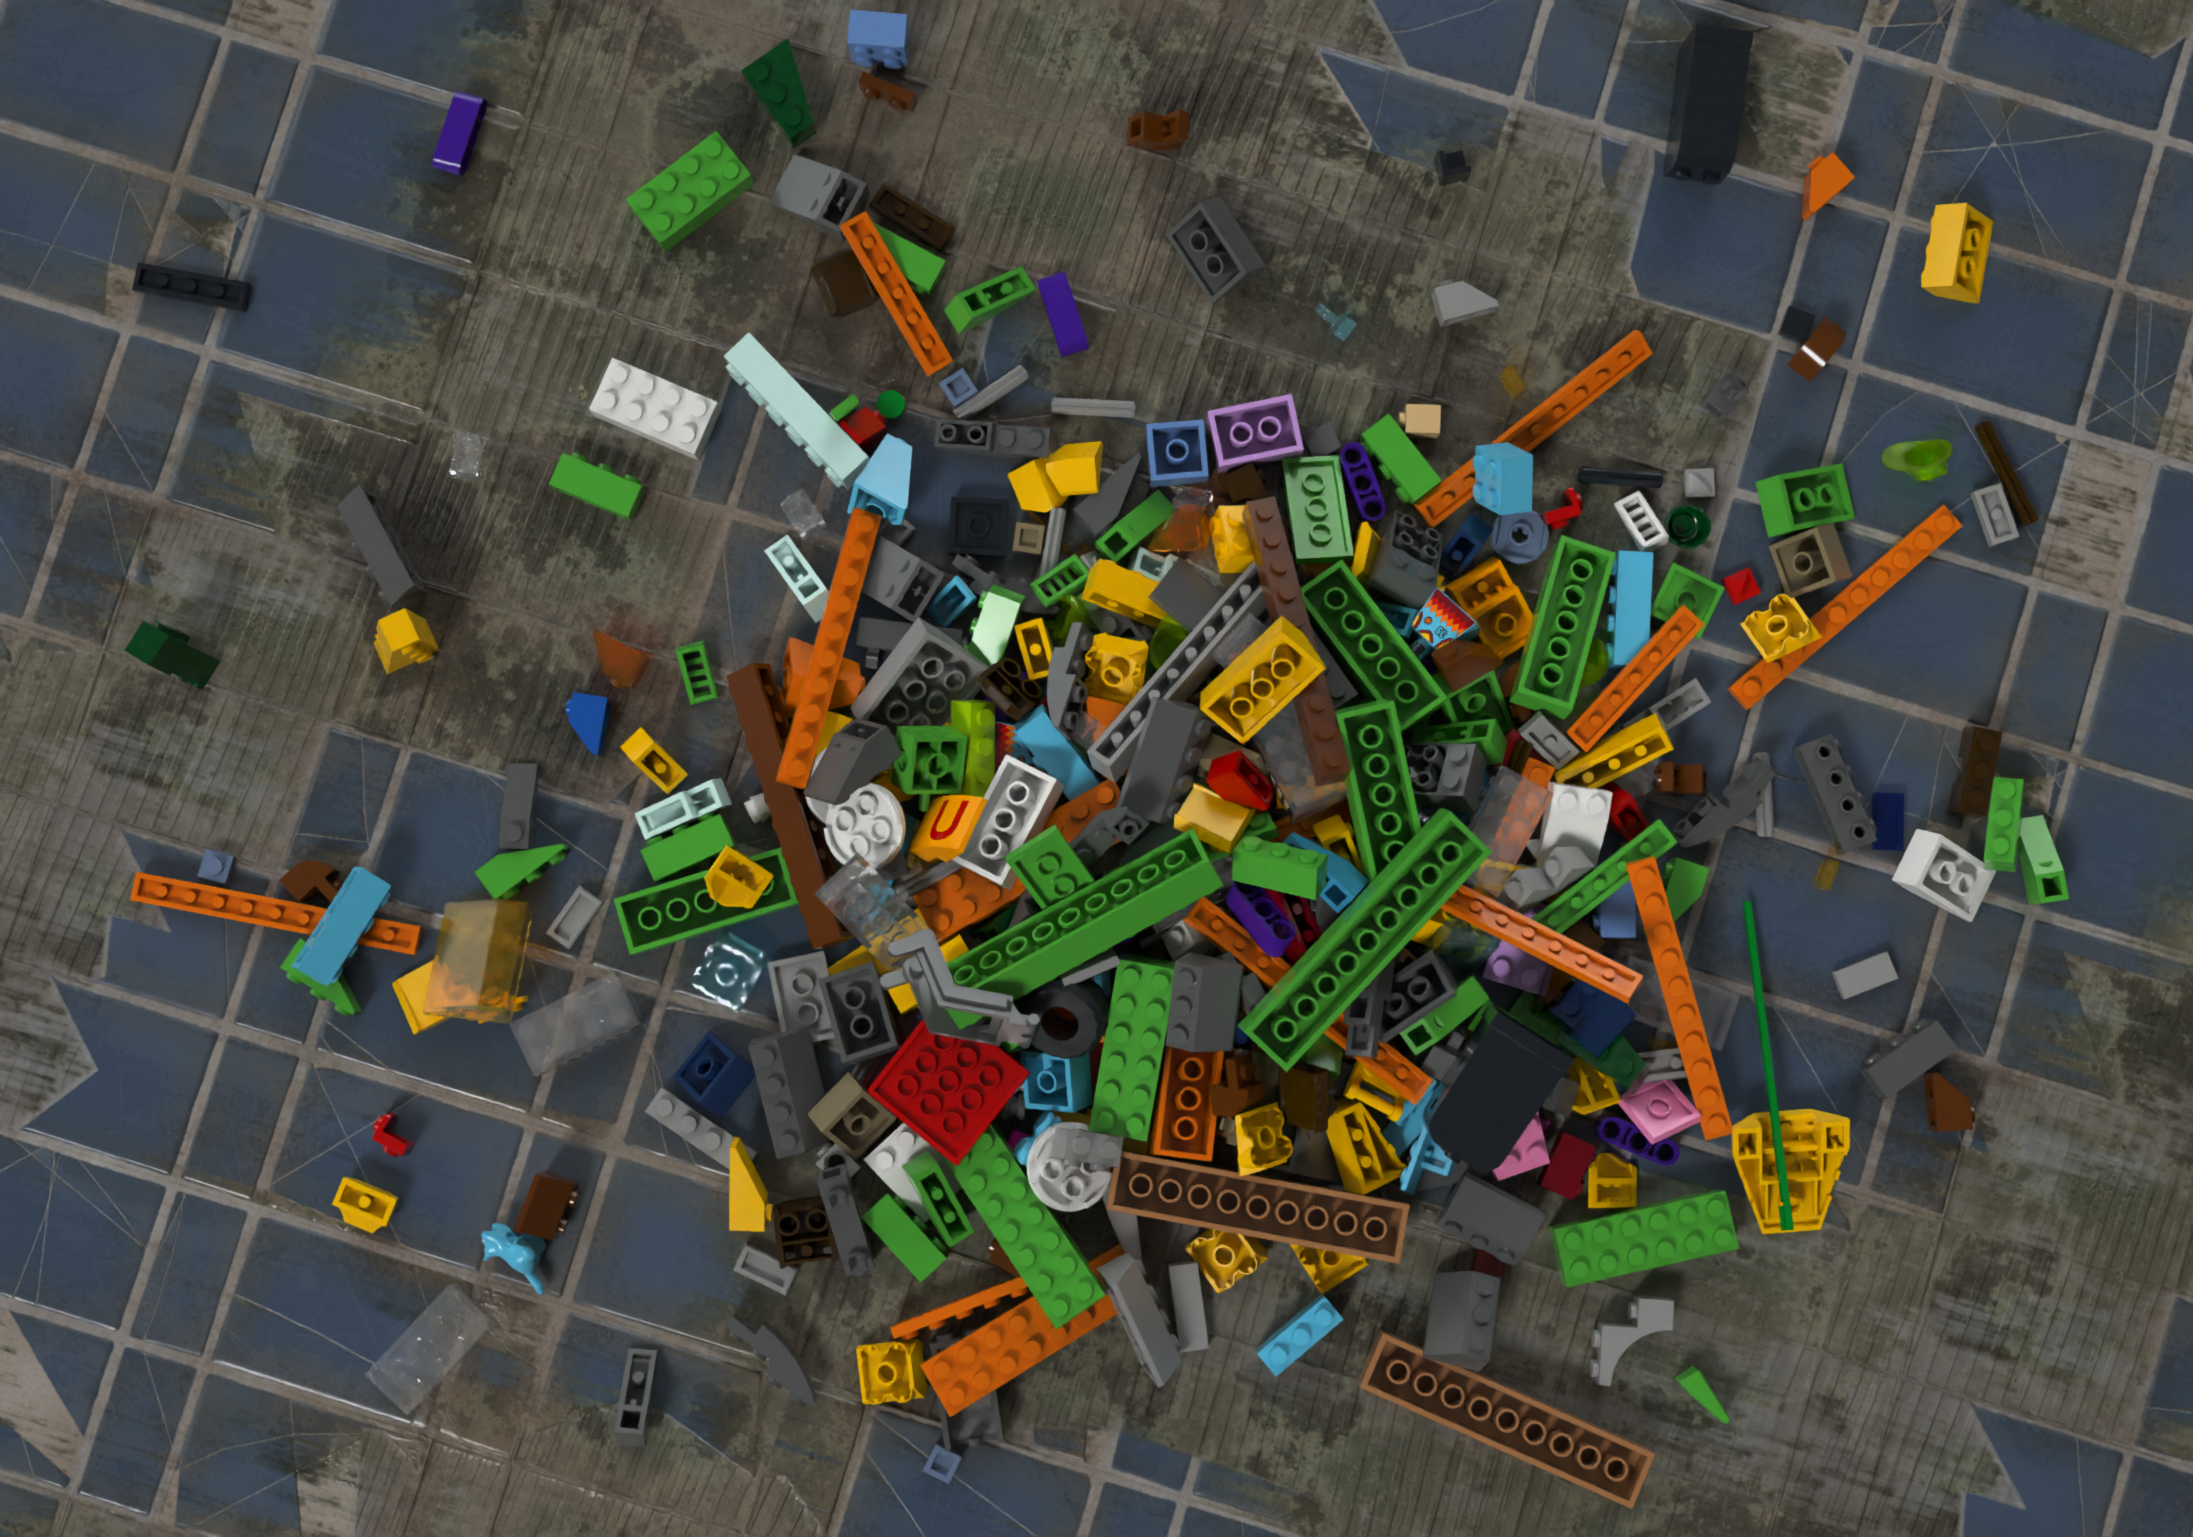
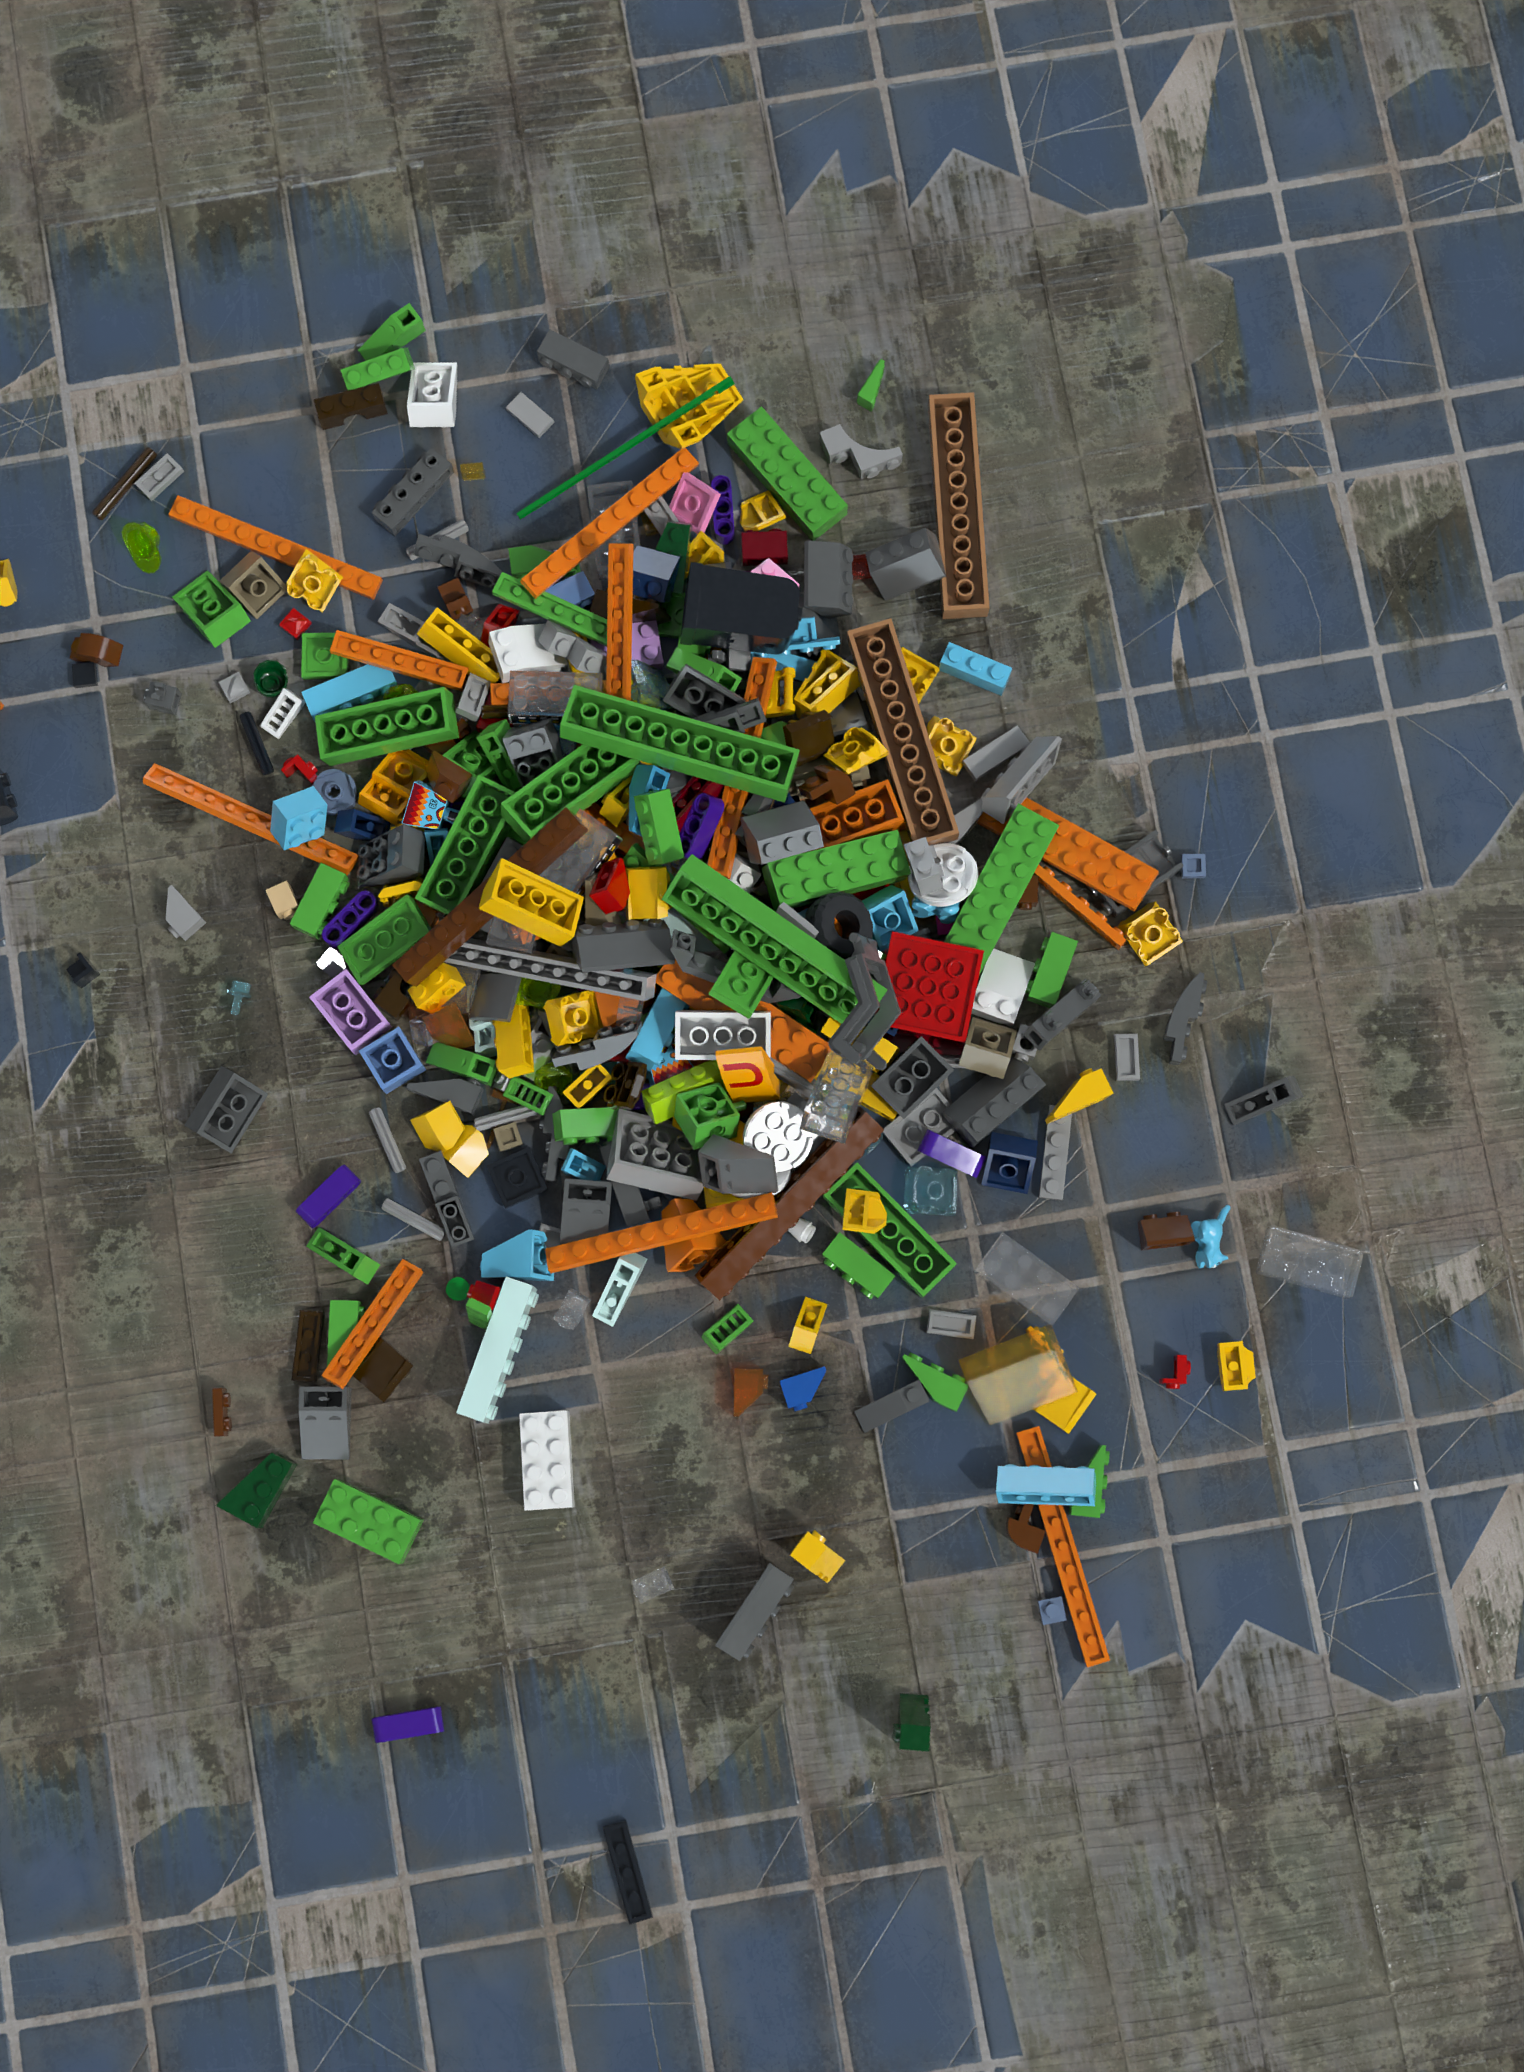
camera: 110 degrees left, 5 degrees down
(598, 485) = (625, 1473): bright green brick -> none
(683, 808) = (832, 1285): light aqua slope -> none
(756, 1014) = (951, 1153): none -> beam
(803, 1232) = (1085, 1042): dark brown slope -> none
(879, 39) = (183, 1436): medium blue brick -> none
(938, 1199) = (1013, 957): bright green brick -> none
(958, 388) = (421, 1244): sand blue plate -> none
(1158, 132) = (155, 1194): reddish brown brick -> none
(1512, 382) = (223, 850): clear yellow tile -> none
(1889, 821) = (411, 448): clear blue tile -> none
(1946, 1105) = (593, 319): reddish brown slope -> none

